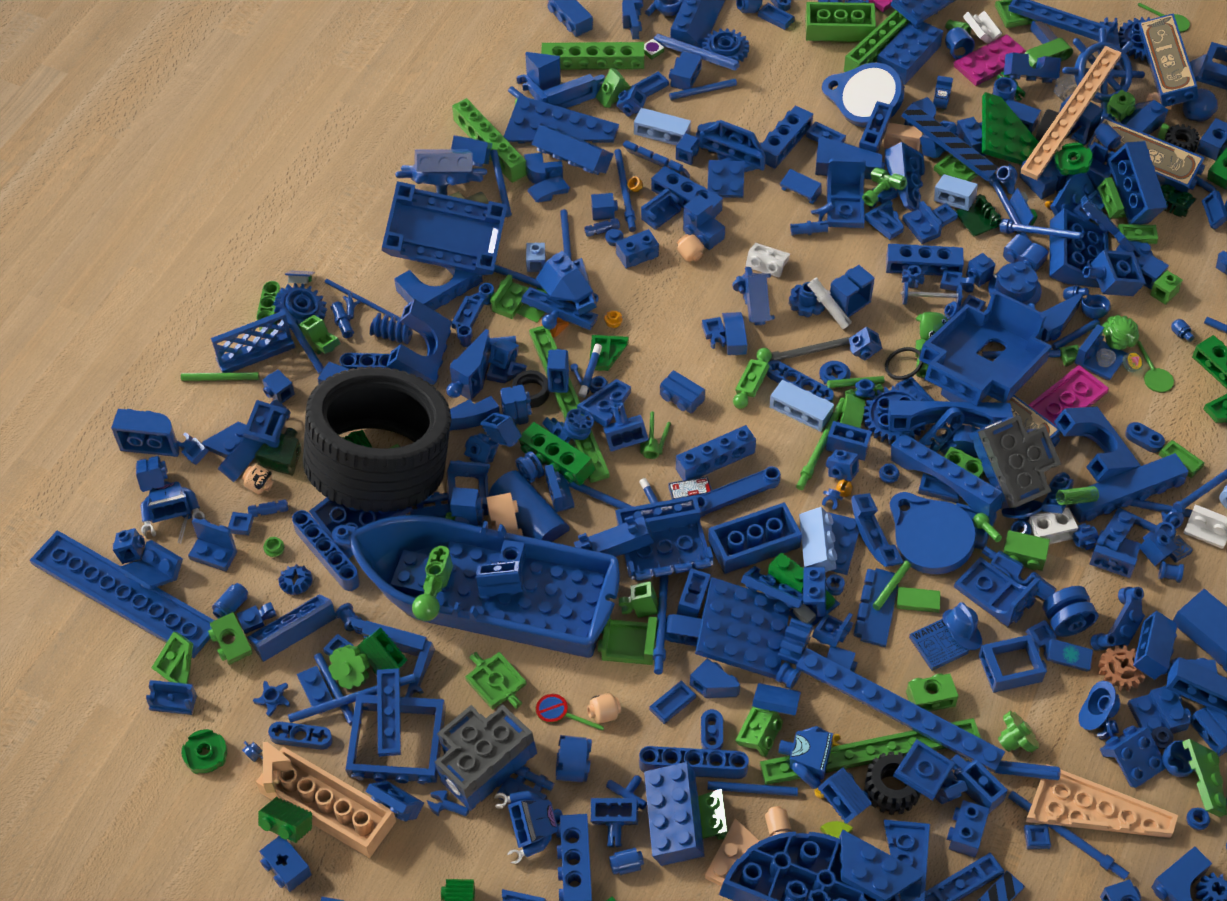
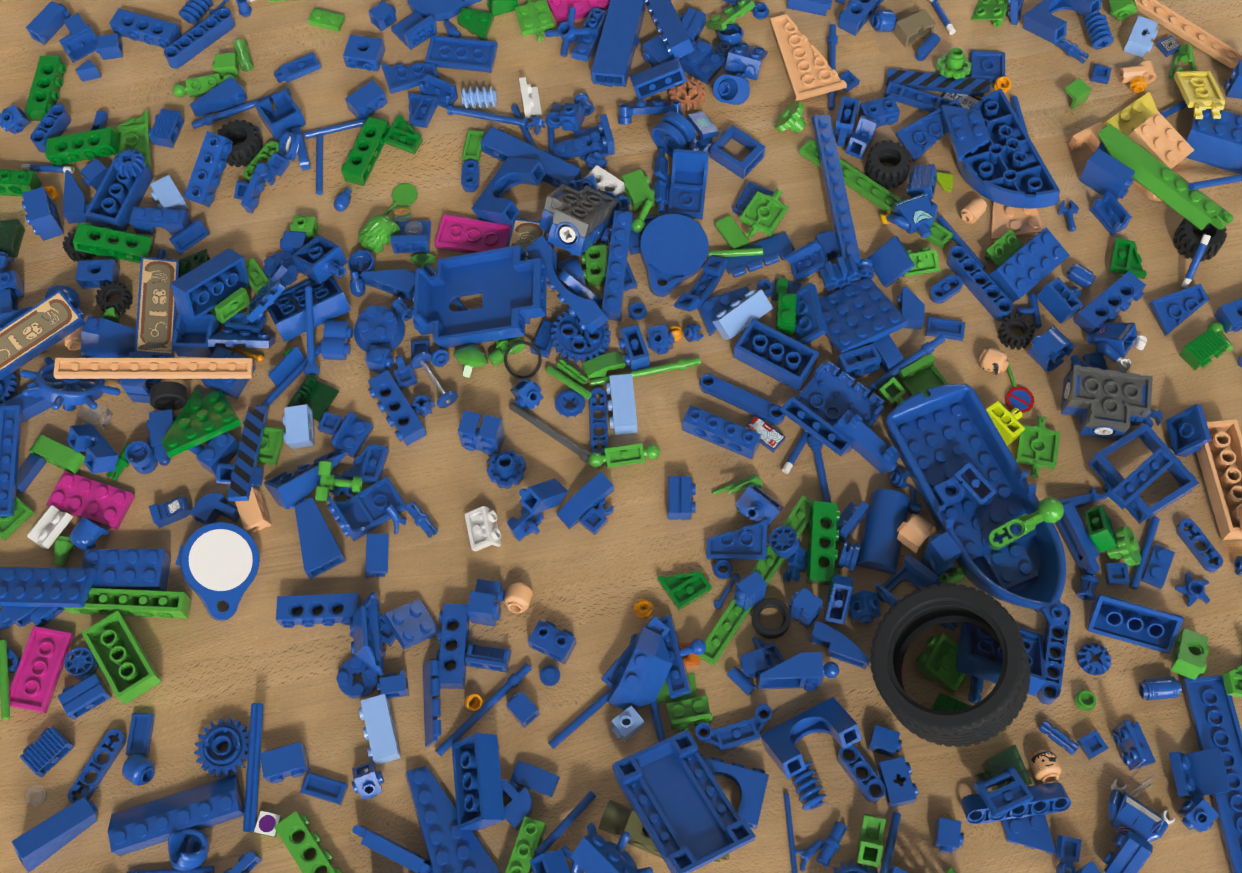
camera: 125 degrees left, 10 degrees up
(253, 618) = (1152, 660): blue plate -> none
(342, 701) = (1110, 506): blue bar -> none
(539, 661) = (1006, 422): none -> neon yellow brick
(590, 371) = (718, 579): blue bar -> none
(602, 227) = (545, 695): blue axle -> none
(611, 88) = (362, 812): bright green brick -> none
(617, 766) = (1018, 322): none -> black tyre
(702, 89) = (296, 732): blue bar -> none
(815, 589) = (790, 282): blue bracket -> none
(821, 130) = (292, 576): blue plate -> none
(826, 299) = (506, 443): white pin -> none
(865, 388) = (574, 361): blue plate -> none
(876, 127) = (266, 528): blue slope -> none
(916, 630) = (764, 213): none -> bright green plate
(924, 769) = (871, 143): blue tile -> none
(942, 685) = (798, 174): bright green brick -> none
(963, 626) = (732, 194): blue piece -> none
(1008, 176) = (248, 399): blue animal -> none
(1028, 770) = (809, 97): blue axle -> none
(1076, 334) = (392, 264): blue bar -> none
(1077, 495) = (577, 168): bright green piece -> none
(1080, 165) = (215, 332): green plate -> none
(1107, 136) = (160, 335): blue brick -> none
(1121, 105) = (102, 349): bright green brick -> none

